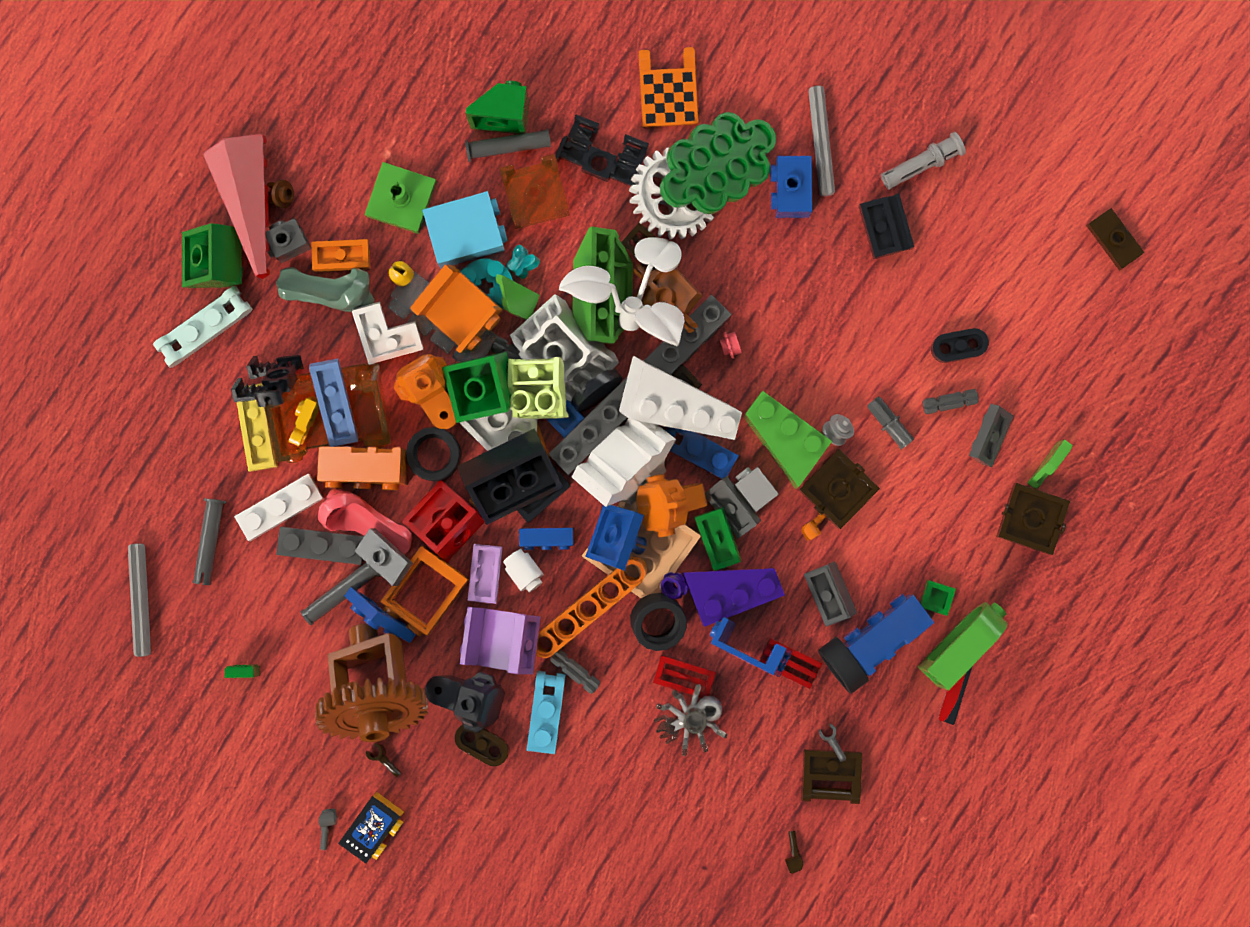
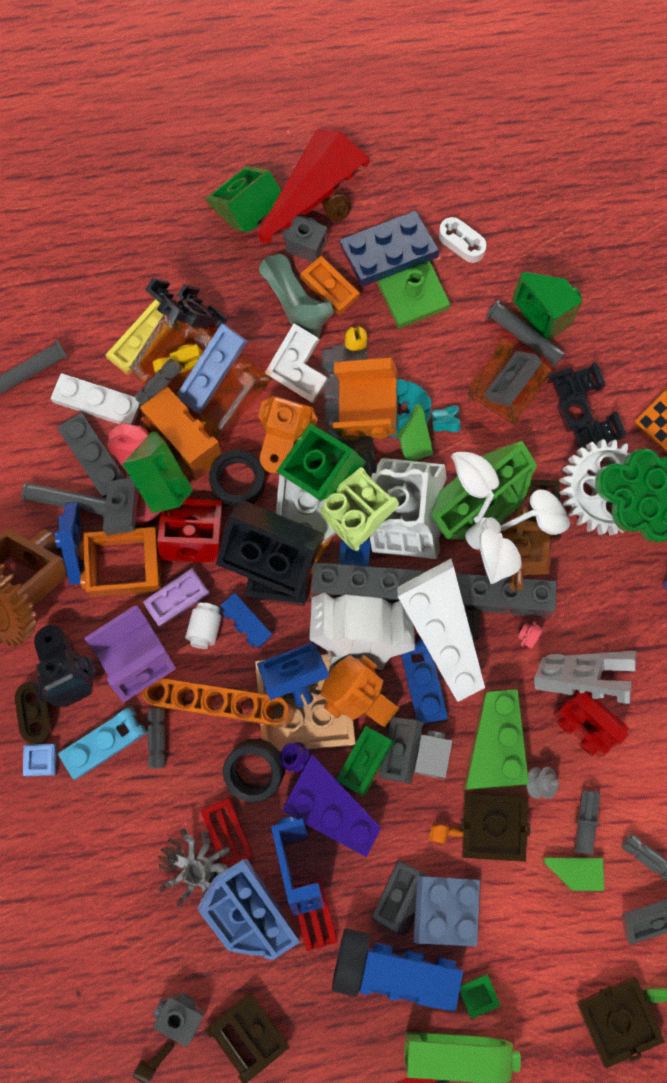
camera: 50 degrees right, 10 degrees down
(203, 327) = (188, 235): light aqua plate -> none
(309, 450) = (158, 381): none -> dark grey axle
(350, 184) = (389, 248): none -> plate
(385, 511) = (157, 475): none -> green slope
(391, 129) = (462, 239): none -> white beam
(465, 229) = (432, 356): medium azure brick -> none
(519, 767) = (39, 760): none -> light blue tile
(536, 188) = (512, 378): none -> dark grey plate
(596, 390) = (398, 556): black tile -> none
(753, 708) = (246, 914): none -> medium blue wedge
(779, 811) = (178, 1018): none -> dark grey brick
(789, 337) = (583, 673): none -> light grey wing
(814, 353) = (608, 728): none -> red brick
(834, 743) = (277, 1014): dark grey hand -> none
(865, 570) = (446, 911): none -> sand blue plate
(917, 458) = (578, 873): none -> bright green tile

